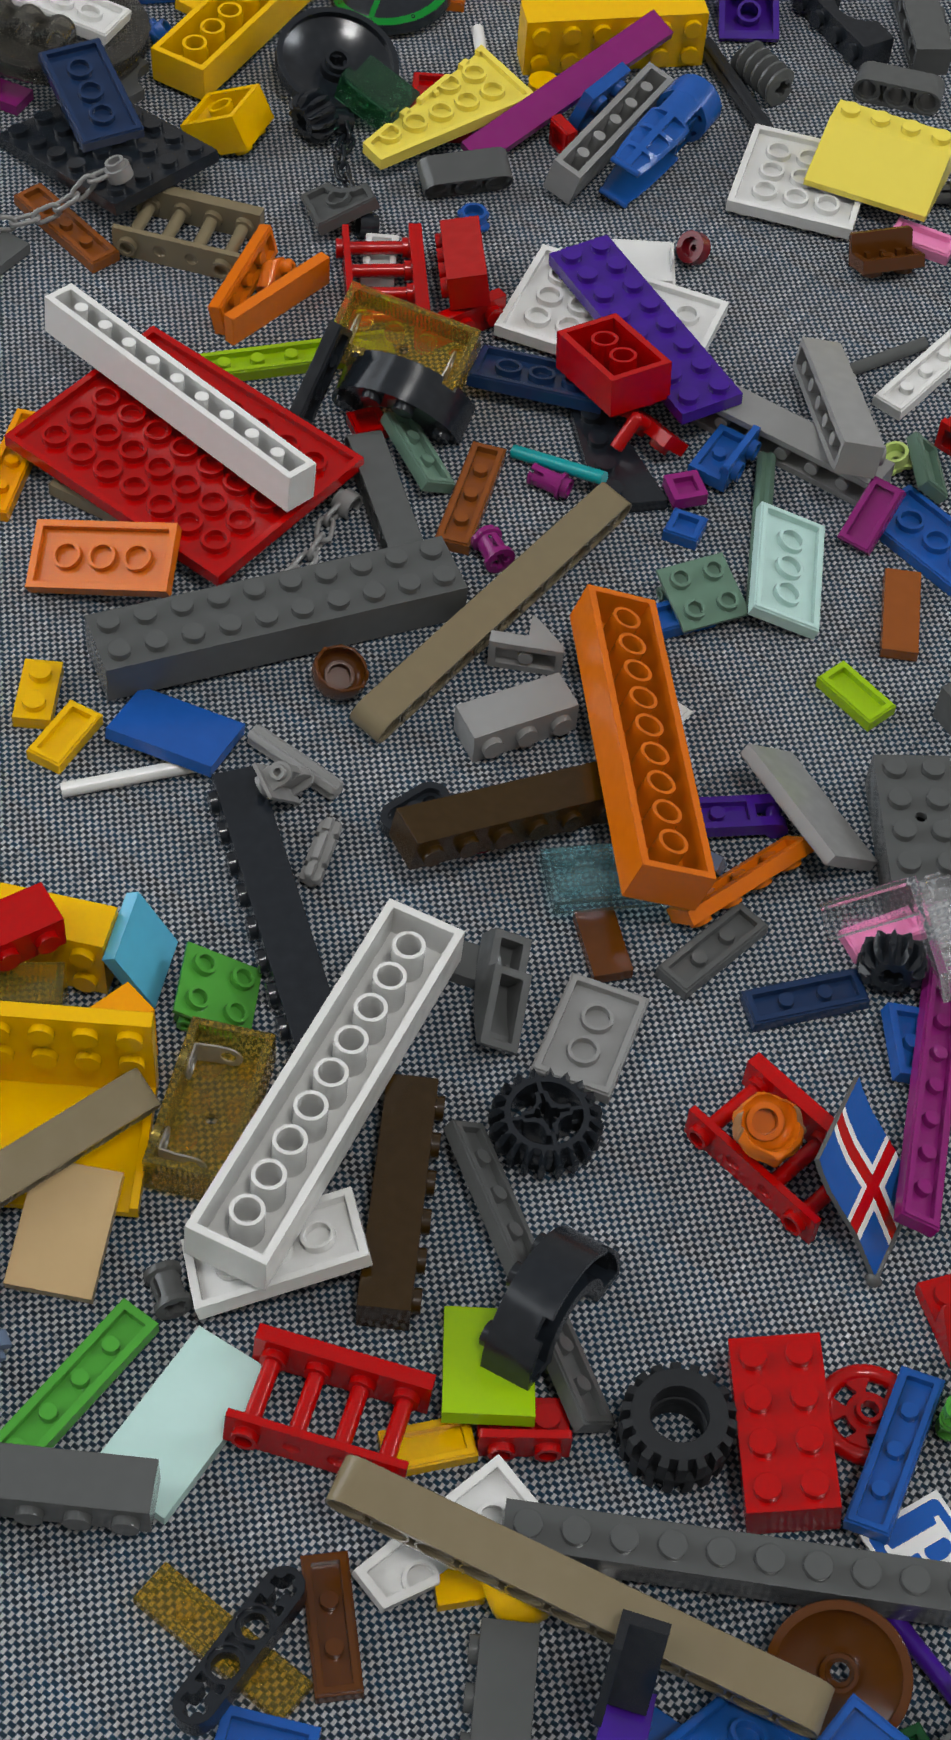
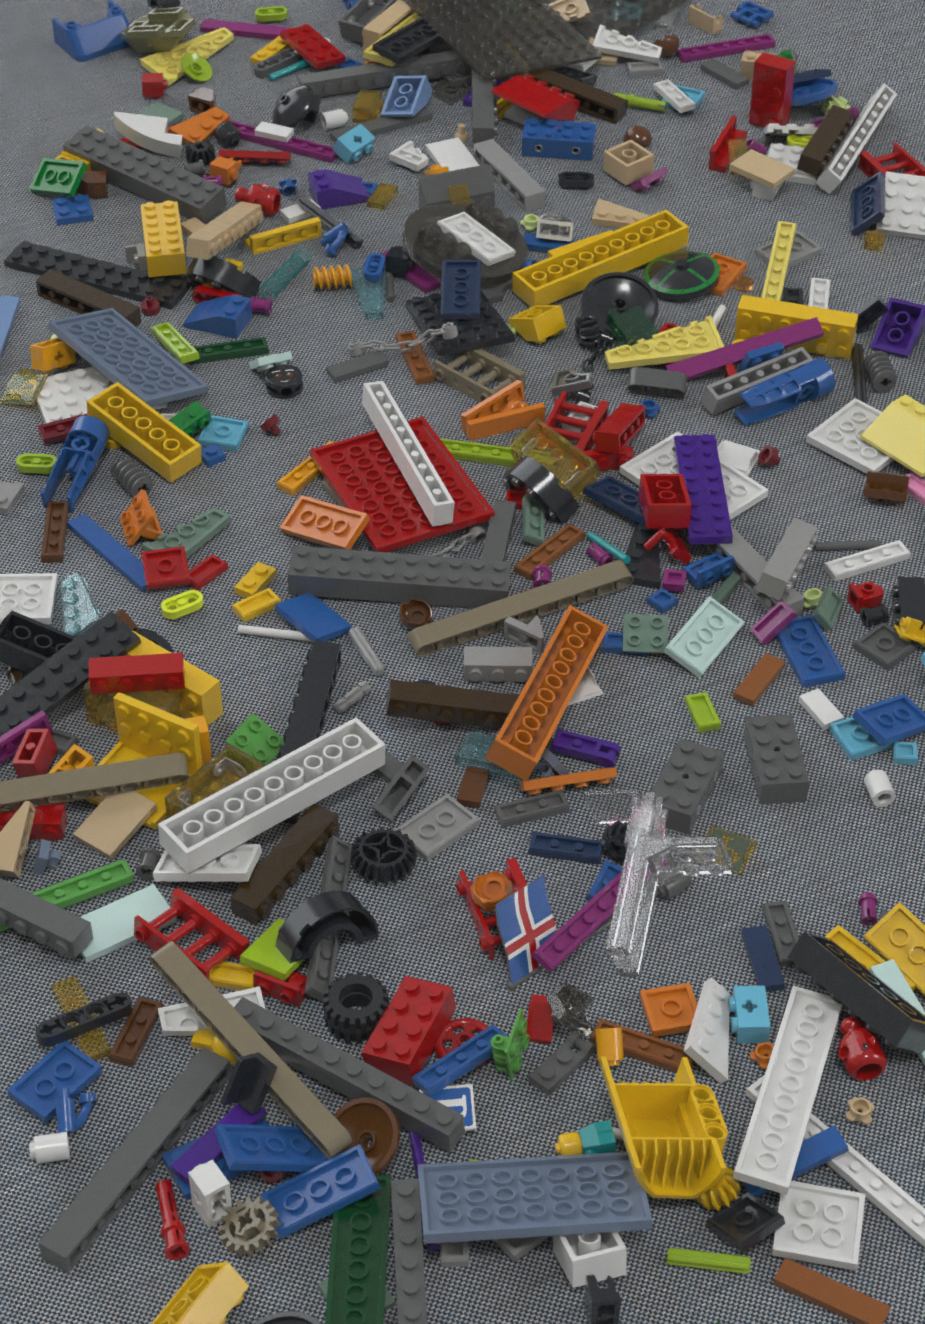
camera: 30 degrees right, 10 degrees down
(140, 948) = (225, 709): medium azure tile -> none
(282, 781) = (348, 654): light grey hinge -> none
(321, 371) = (496, 463): black tile -> none
(808, 808) = (628, 753): light grey tile -> none

